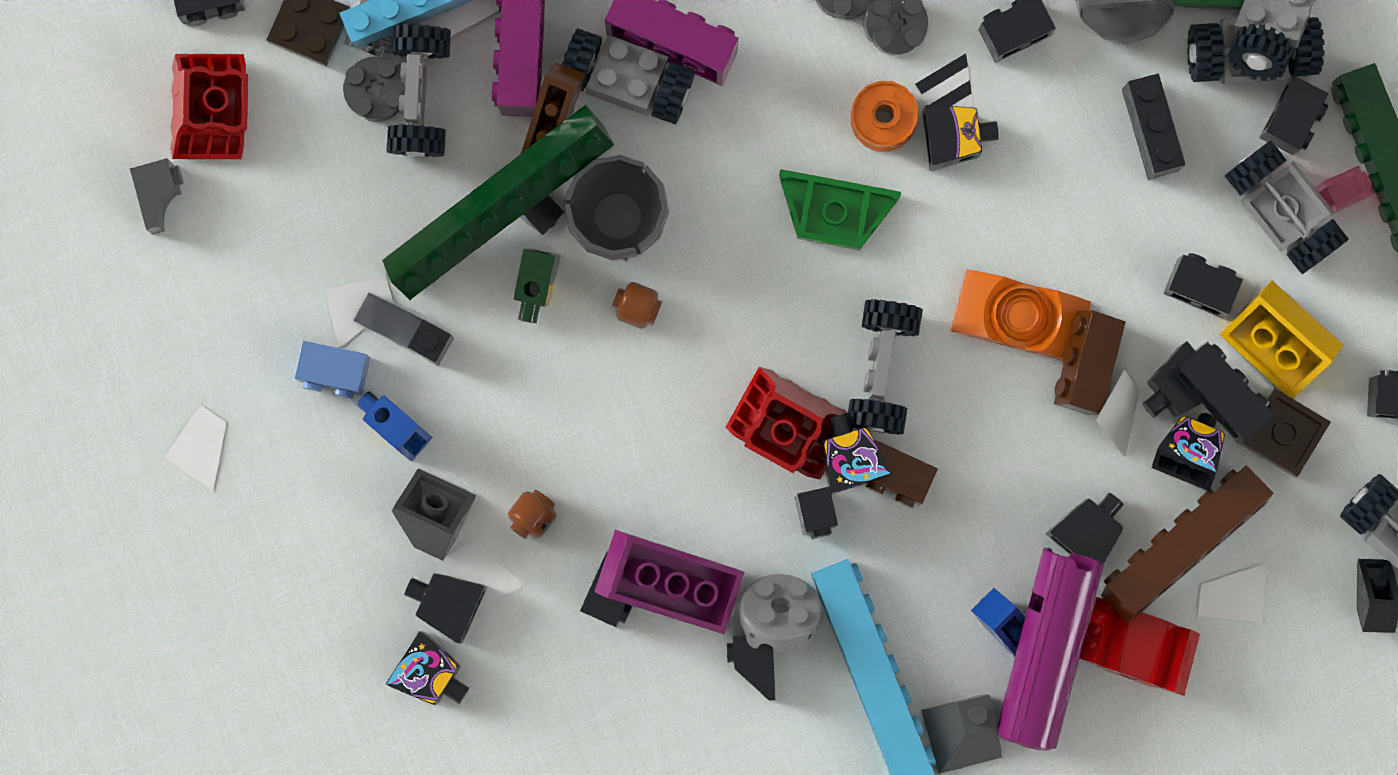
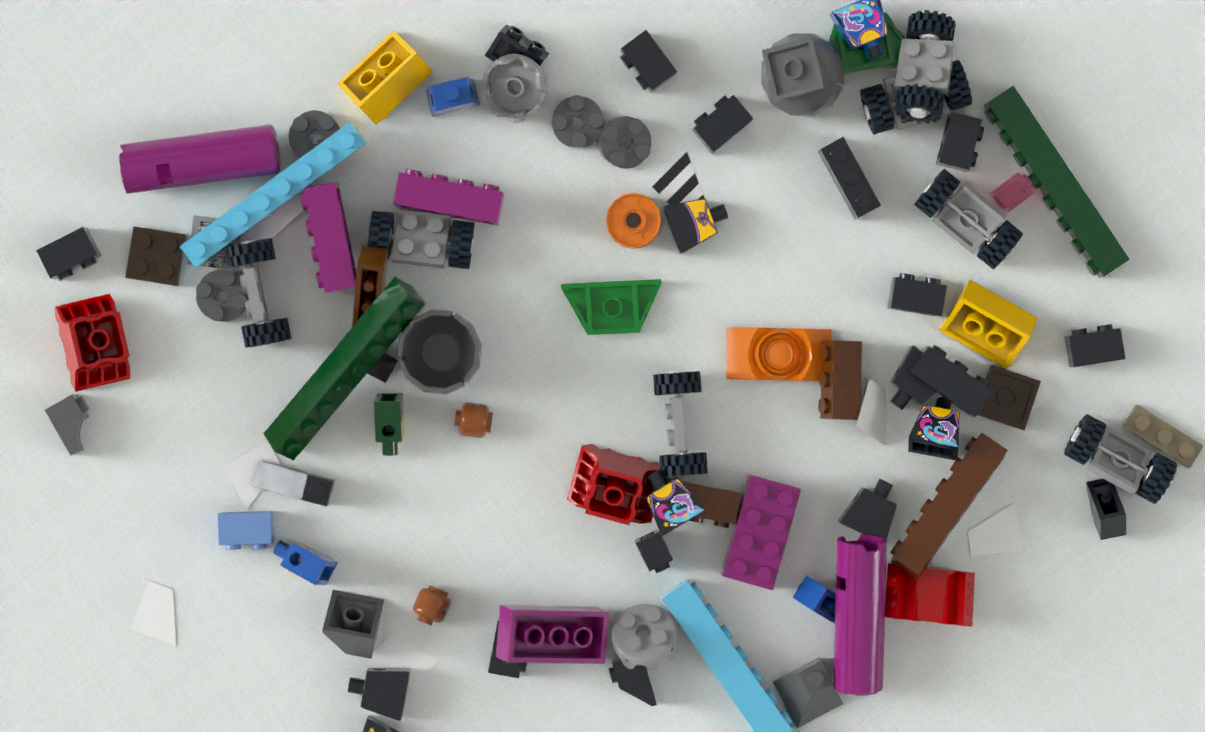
camera: 10 degrees left, 5 degrees up
(950, 521) = (760, 532): none -> magenta brick

